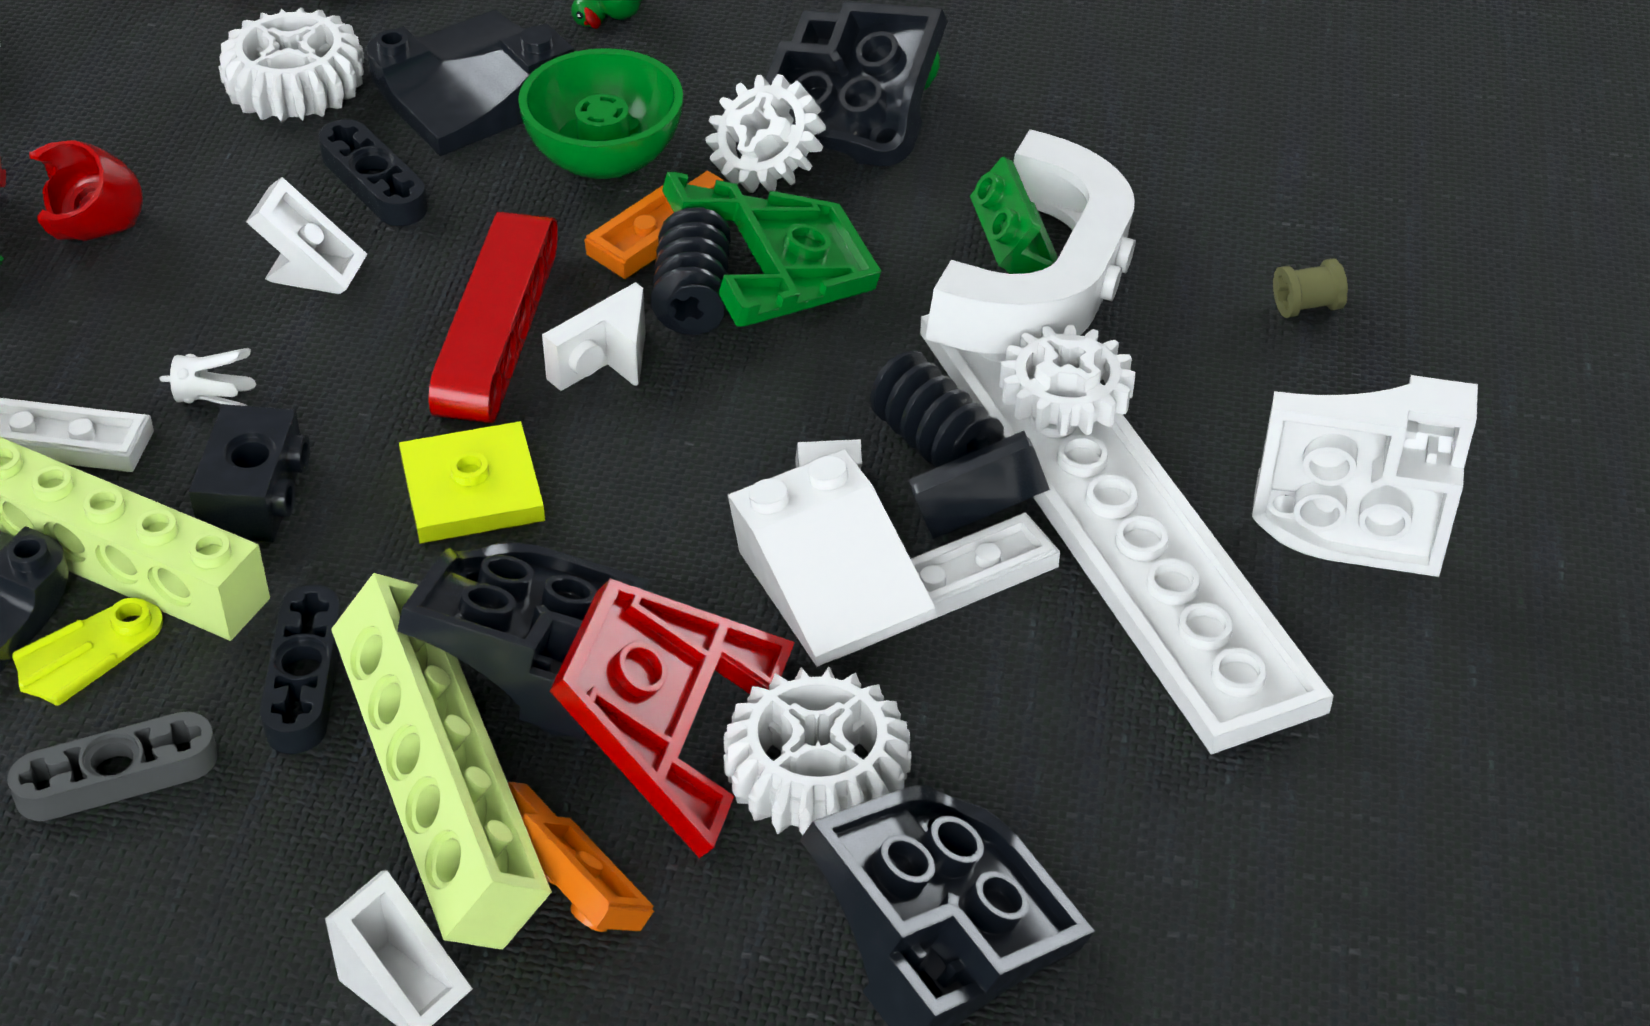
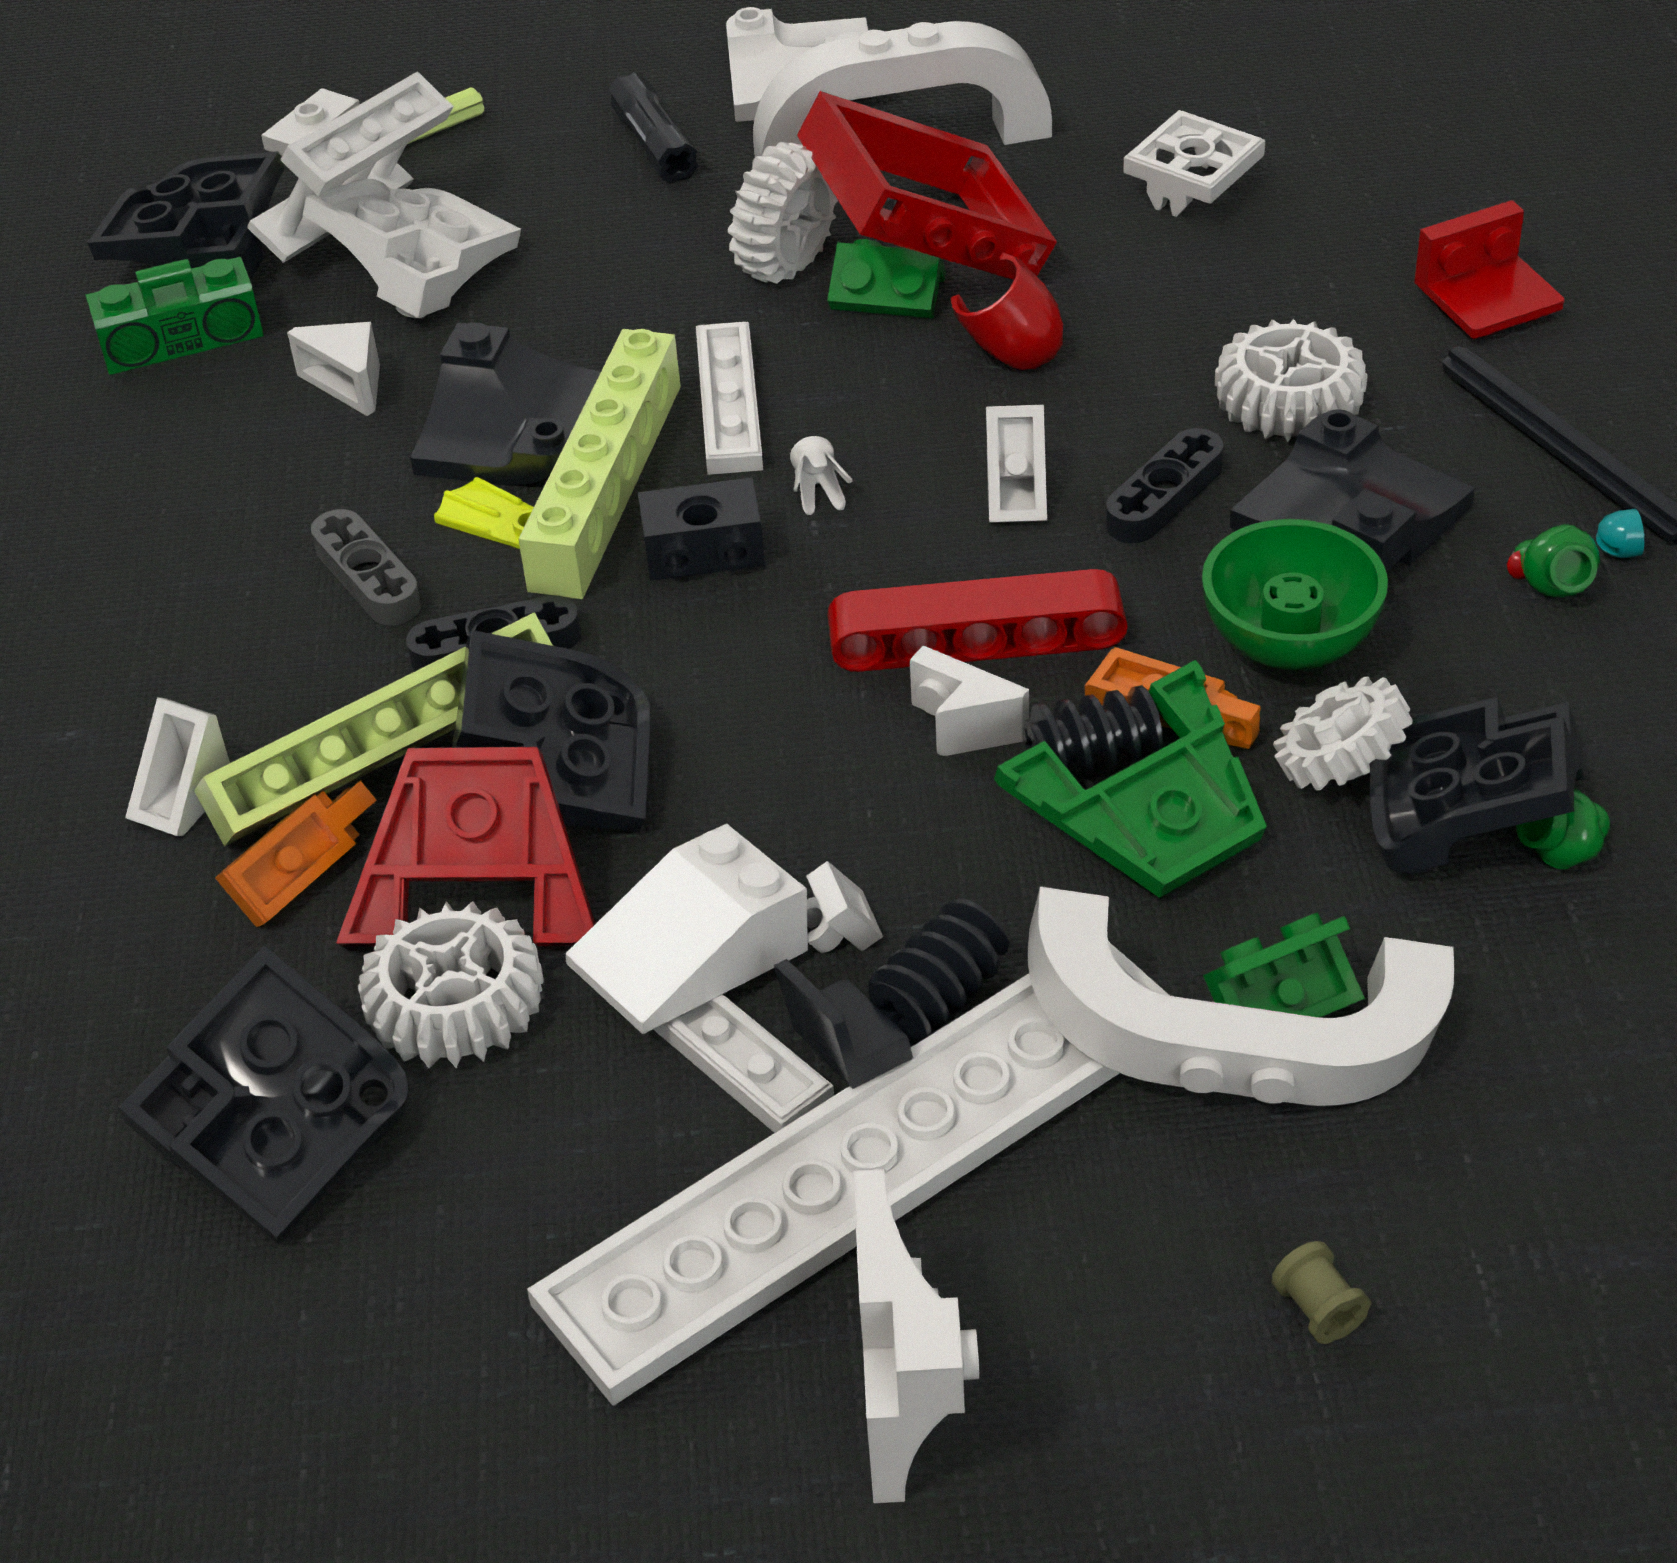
camera: 80 degrees right, 0 degrees up
(471, 482) = (752, 674): neon yellow plate -> none
(1067, 380) = (1000, 1057): white gear -> none

